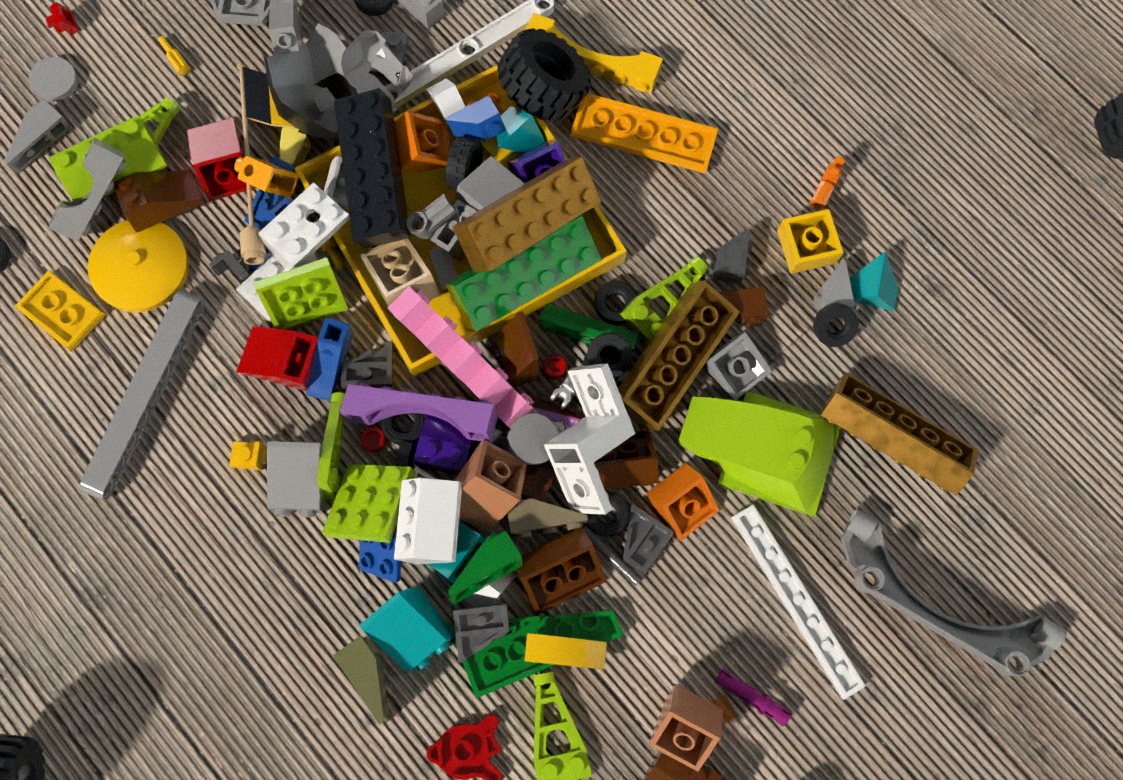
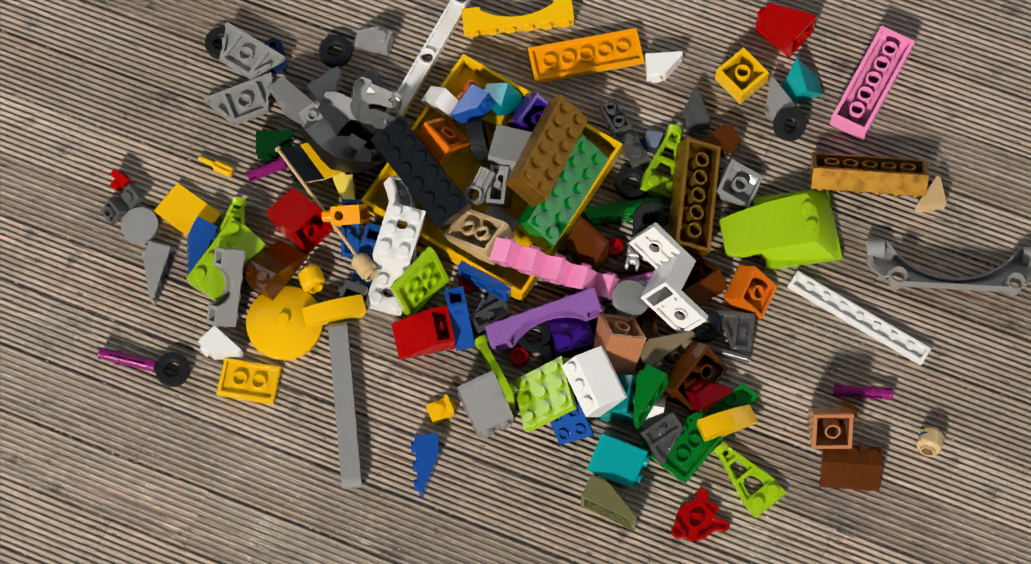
camera: 20 degrees left, 5 degrees down
(41, 47) = (117, 207): none -> dark grey slope
(49, 252) = (218, 345): none -> white slope
(95, 120) = (198, 240): none -> blue slope
(111, 91) = (182, 208): none -> yellow tile
(194, 229) = (311, 278): none -> yellow head
(195, 279) = (334, 311): none -> yellow slope
(198, 501) = (427, 456): none -> blue slope
(220, 85) = (266, 169): none -> magenta pin
(241, 52) = (268, 140): none -> dark green slope
(344, 23) = (327, 83): none -> light grey slope
(366, 323) = (467, 286): none -> red tile
(380, 331) = (484, 281): none -> blue tile
(543, 74) = (498, 50): black tyre -> none
(562, 602) = (706, 394): none -> dark red slope
(637, 240) = (622, 131): none -> dark grey slope
(666, 264) = (652, 140): none -> dark blue slope
(724, 184) = (661, 65): none -> white slope
(827, 184) = (732, 30): orange bar -> none
(890, 209) = (784, 27): none -> red slope
(960, 325) = (872, 83): none -> bright pink brick
(967, 500) = (934, 198): none -> tan slope

